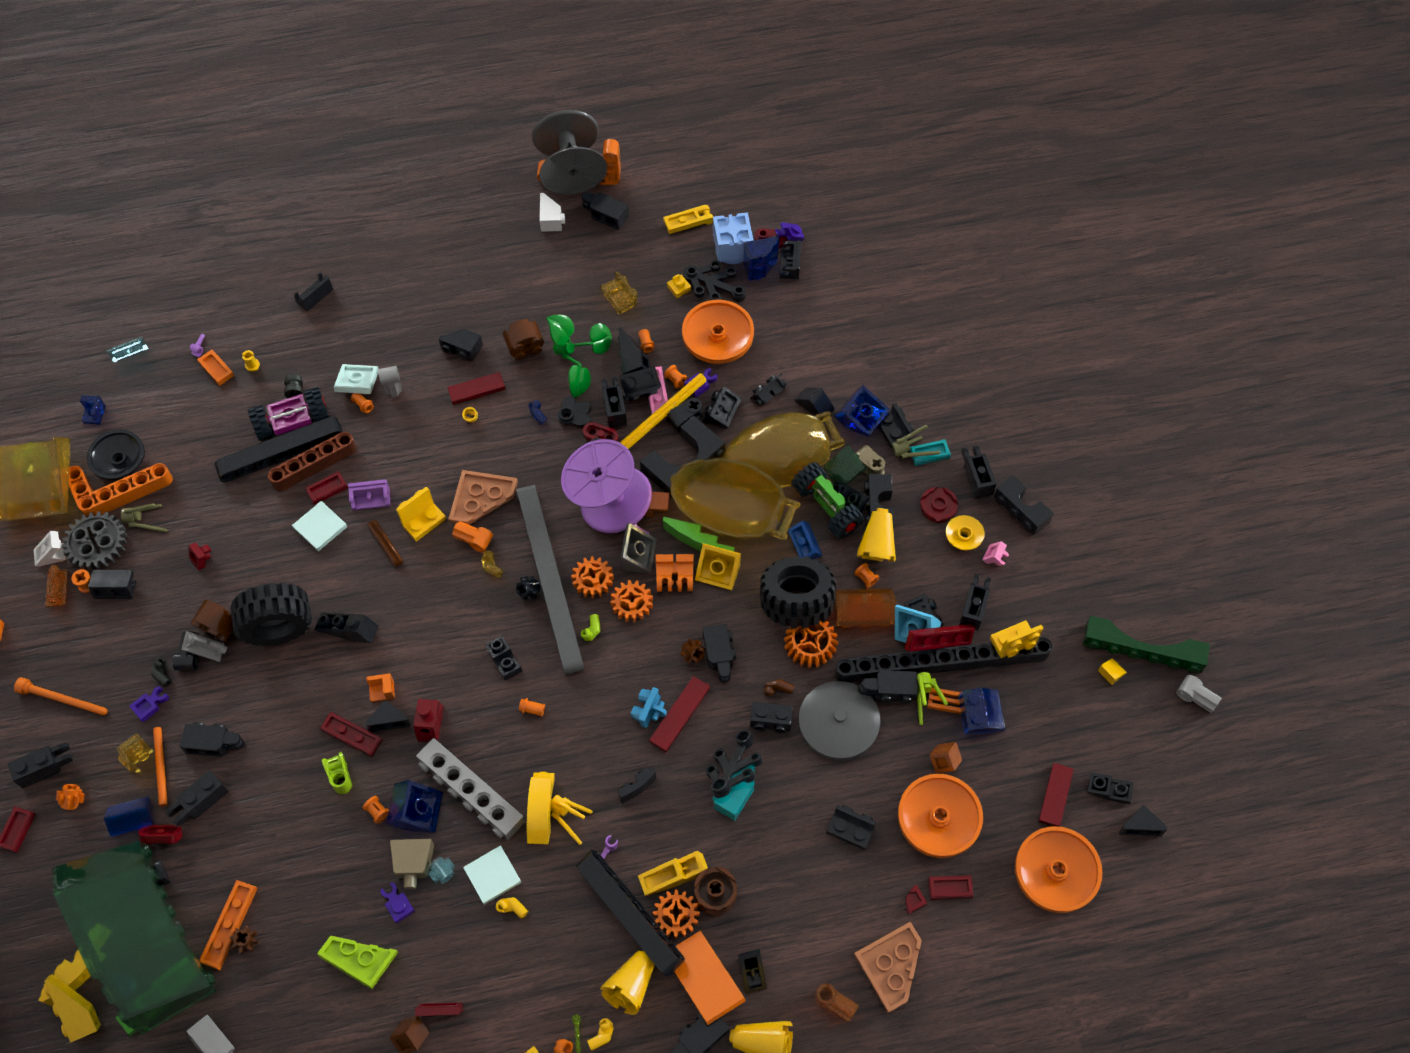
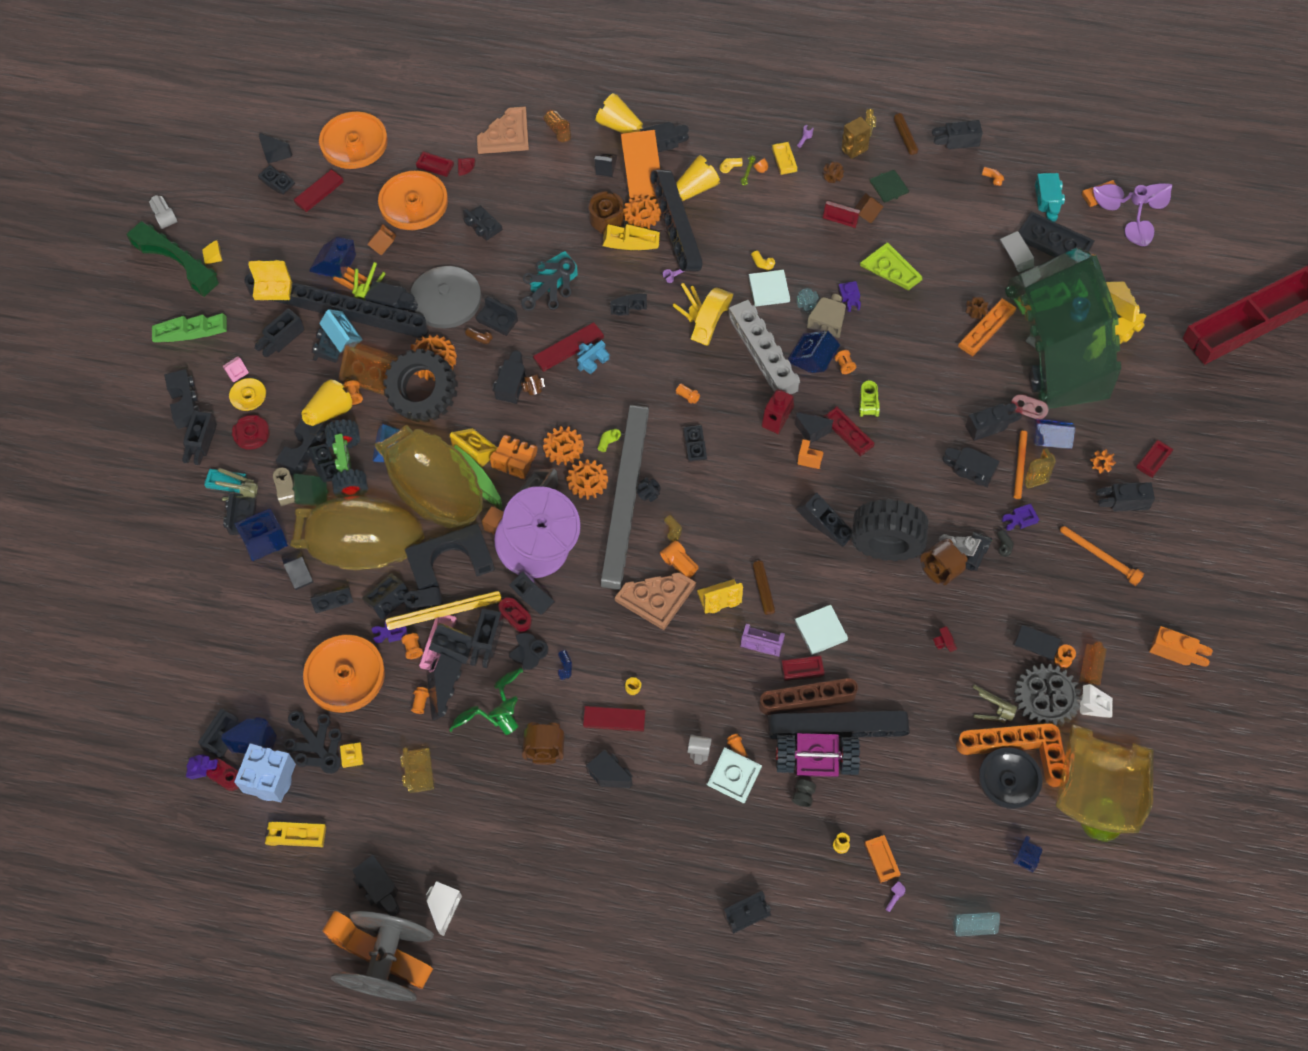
camera: 155 degrees left, 0 degrees up
(939, 637) = (321, 310): dark red tile -> none
(1071, 579) = (188, 329): none -> bright green slope

